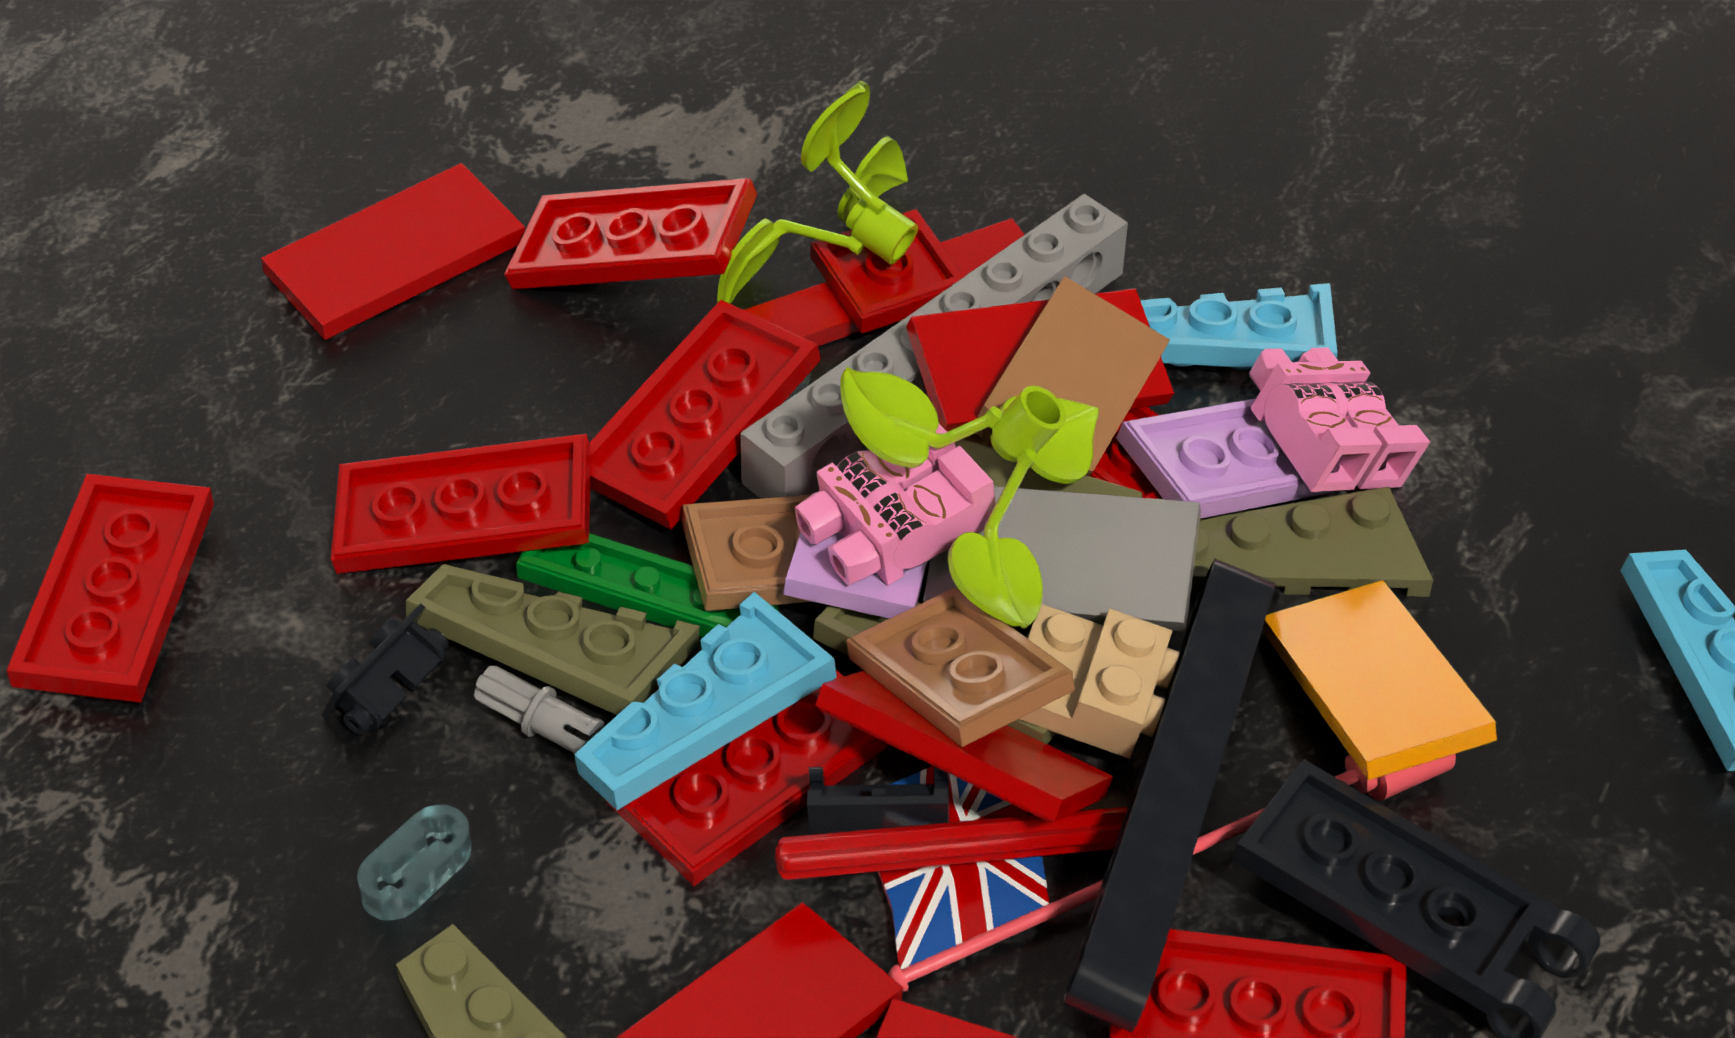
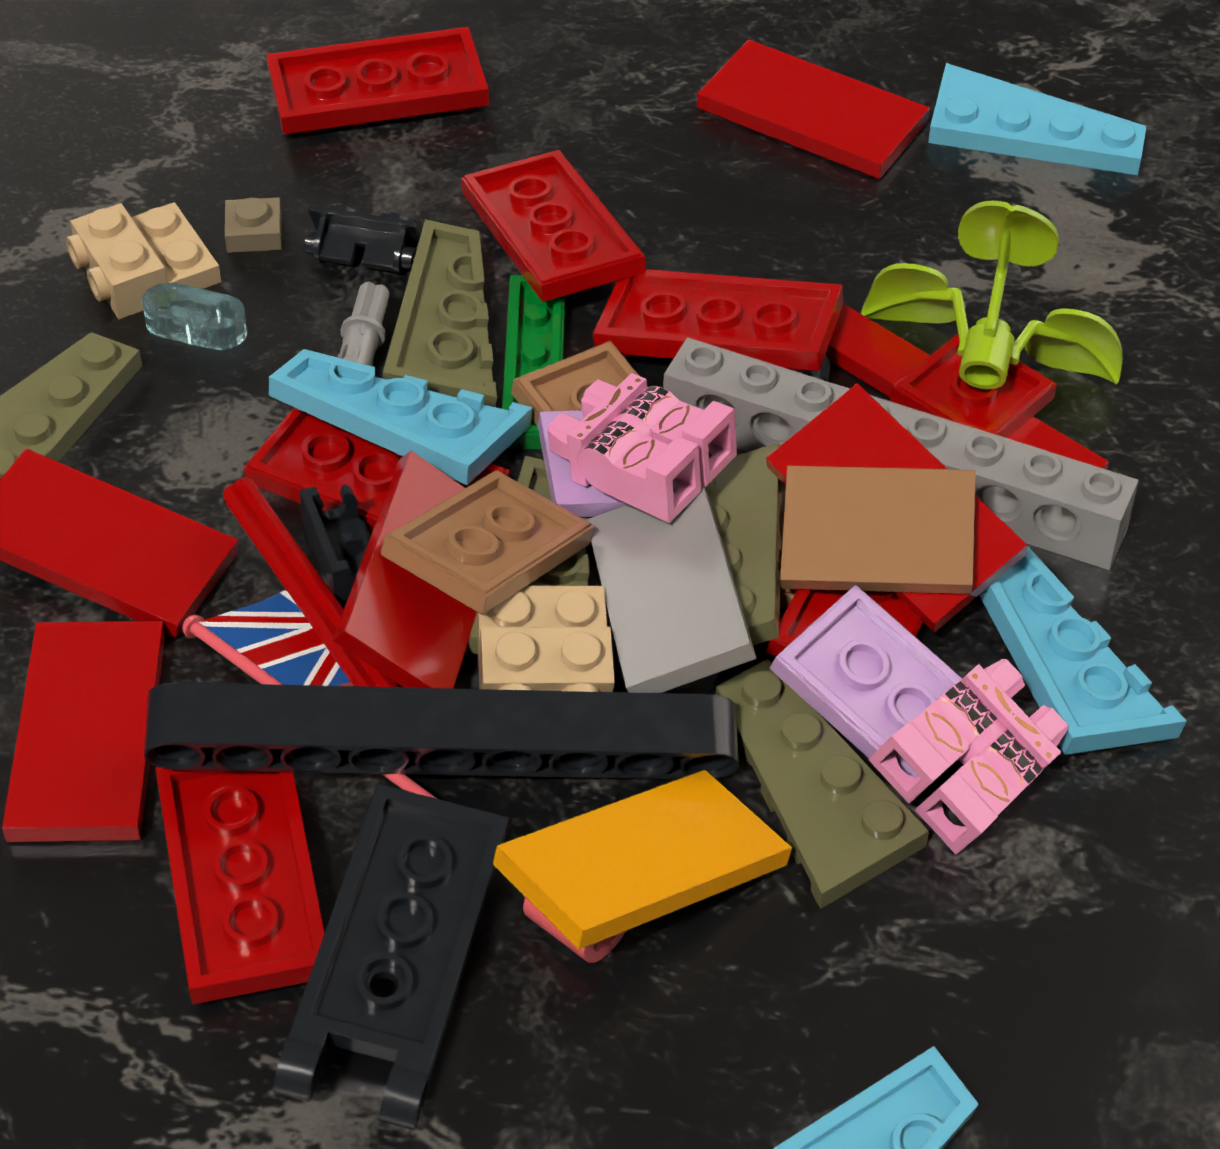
camera: 70 degrees right, 0 degrees up
(284, 889) = (138, 252): none -> tan plate
(286, 770) = (253, 225): none -> dark tan plate
(519, 110) = (1024, 123): none -> medium azure wing
(632, 234) = (894, 216): red tile -> none
(1028, 429) = (691, 380): lime plant -> none

